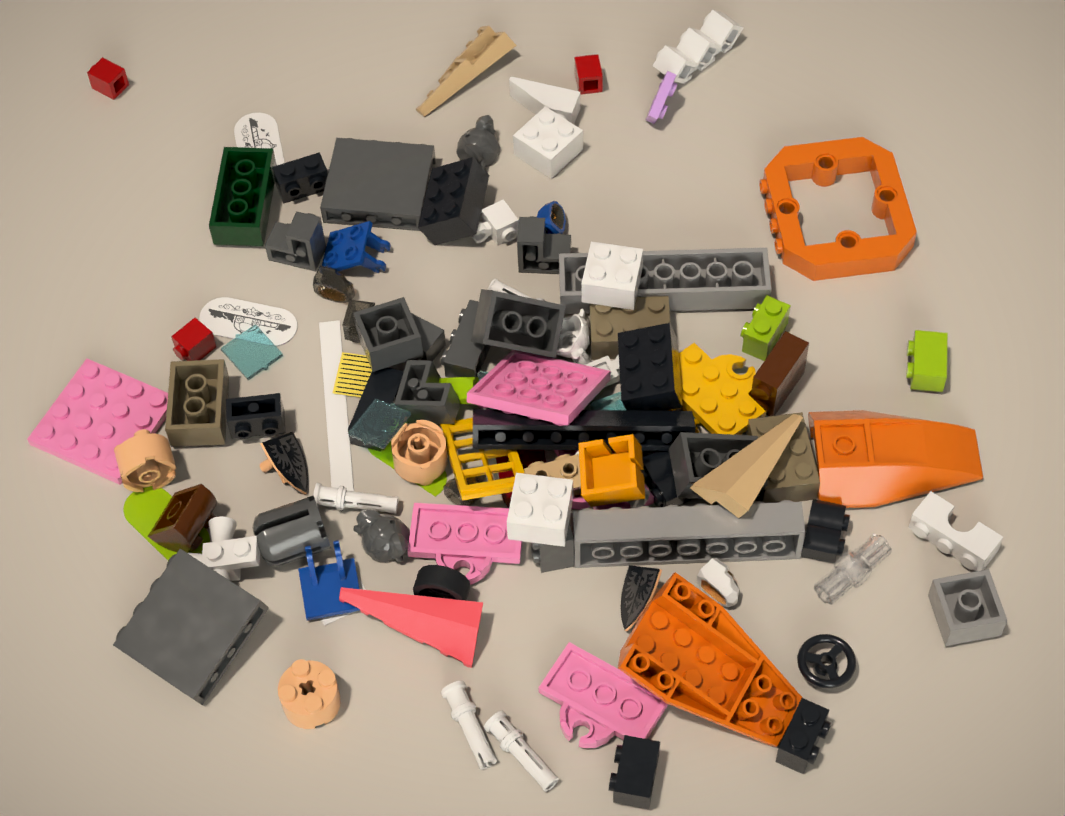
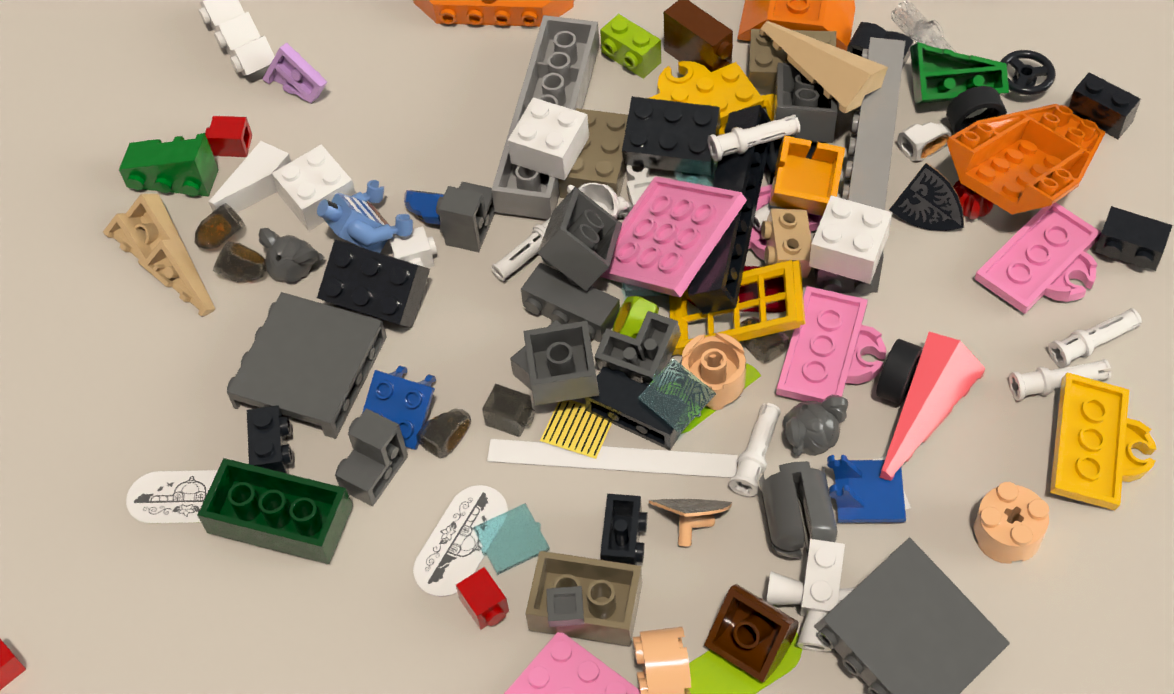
camera: 75 degrees left, 0 degrees up
(172, 380) = (565, 606): none -> dark grey plate
(403, 757) = (1097, 442): none -> yellow plate
(463, 114) = (240, 263): none -> clear smoke rock
(495, 93) = (218, 227): none -> rock
(513, 173) = (359, 221): none -> medium blue torso
(543, 46) = (170, 166): none -> green wedge
(640, 413) = (741, 139): none -> white pin
(754, 616) = (971, 101): none -> black tyre
(795, 592) = (944, 74): none -> green wedge

